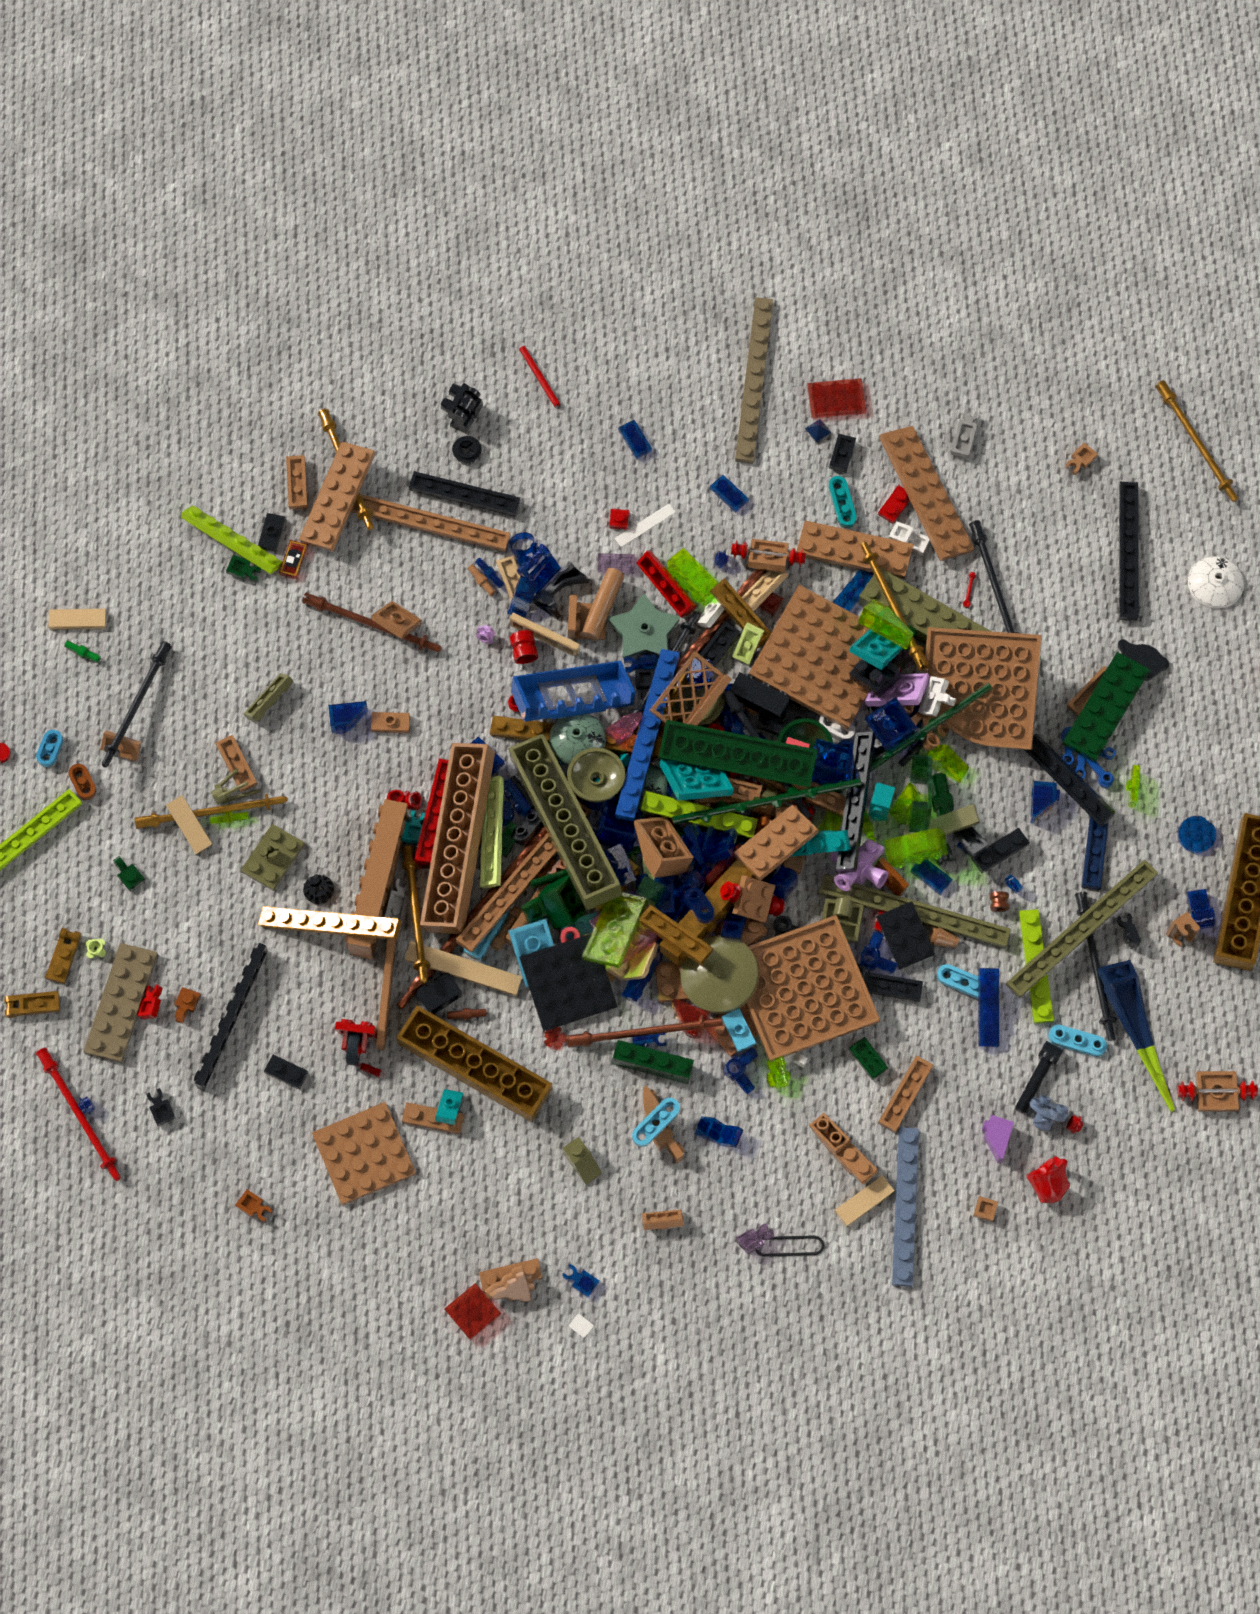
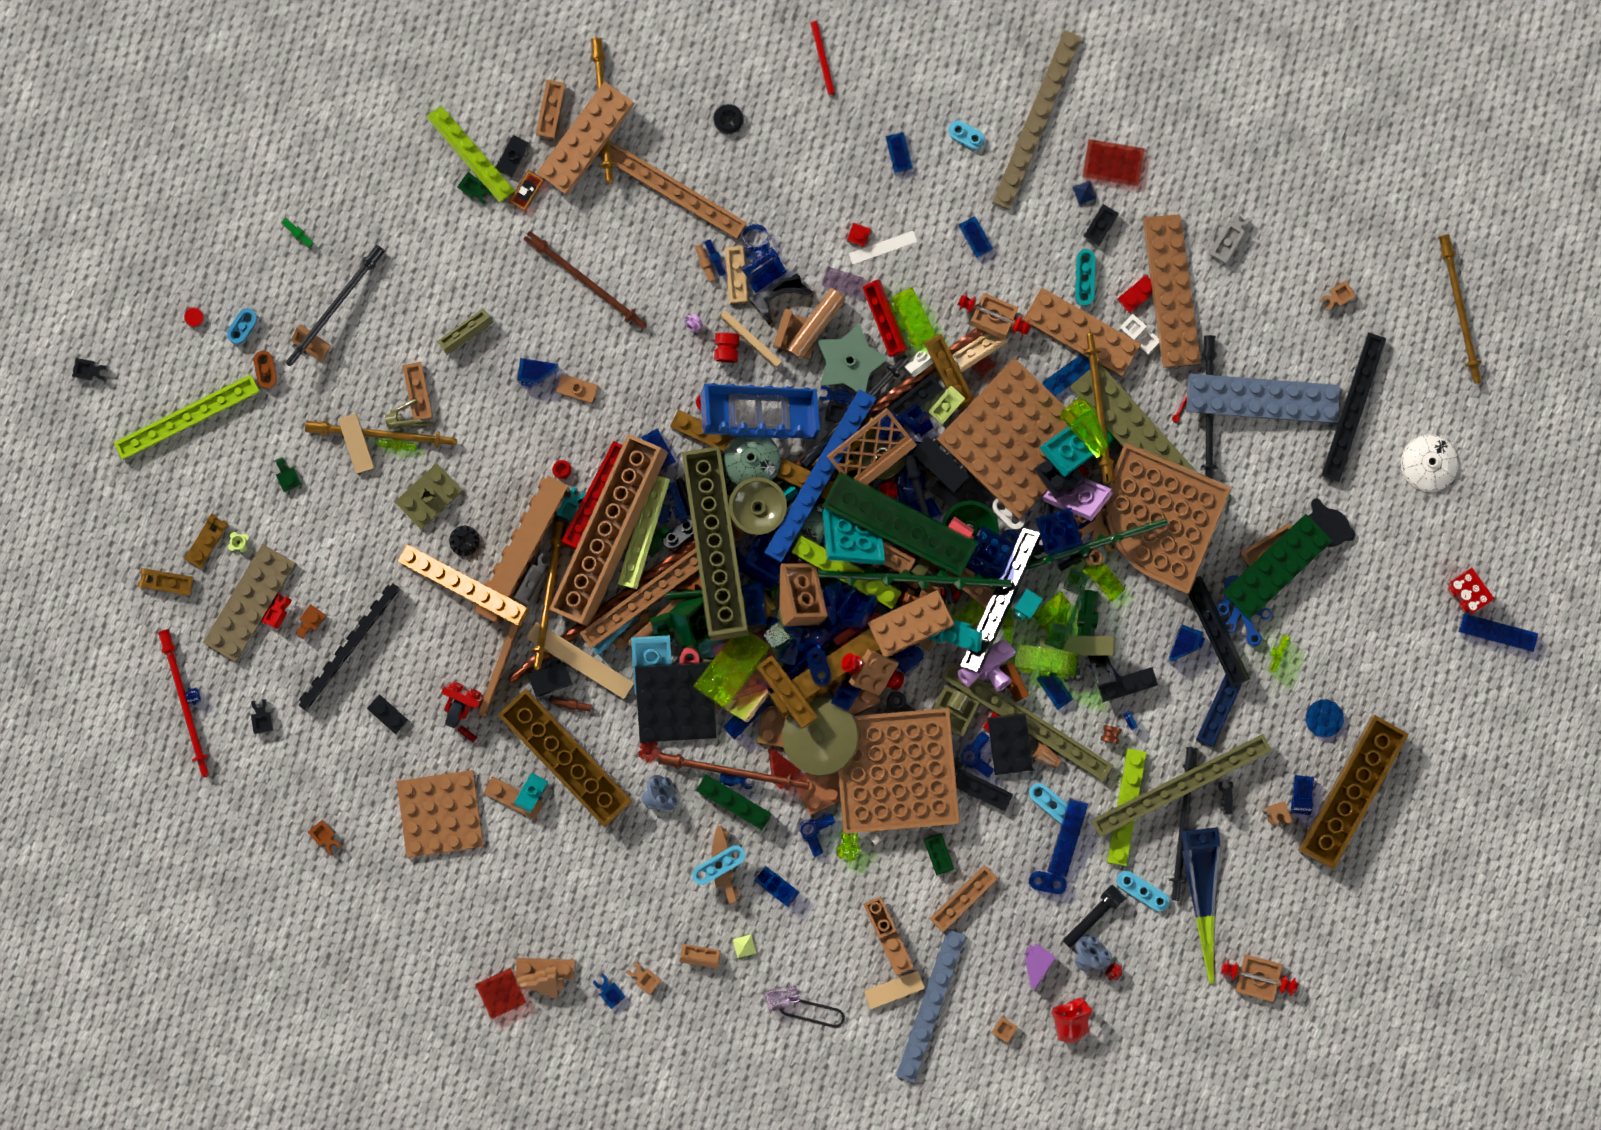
camera: 15 degrees right, 15 degrees up
(77, 619) = (300, 196): tan tile -> none
(396, 619) = (610, 285): medium nougat plate -> none
(415, 796) = (580, 479): red plate -> none
(463, 407) = (736, 75): black hips -> none
(464, 493) = (713, 167): black plate -> none
(522, 596) = (739, 296): clear blue slope -> none
(577, 1073) = (660, 794): none -> sand blue plate
(581, 1160) = (640, 879): olive slope -> none
(581, 1325) = (597, 1032): white sticker -> none
(615, 1258) = (646, 980): none -> medium nougat plate
(624, 727) = (799, 463): clear pink plate -> none
(692, 409) = (966, 134): none -> medium azure plate
(703, 1200) = (744, 946): none -> yellowish green slope
(721, 559) = (947, 306): clear blue plate -> none
(726, 664) = (917, 421): none -> clear blue window
(738, 1030) = (823, 794): medium azure plate -> none
(935, 696) = (1110, 515): white plate -> none
(982, 1056) = (1047, 882): none -> clear blue plate
(1042, 563) = (1263, 398): none -> sand blue plate

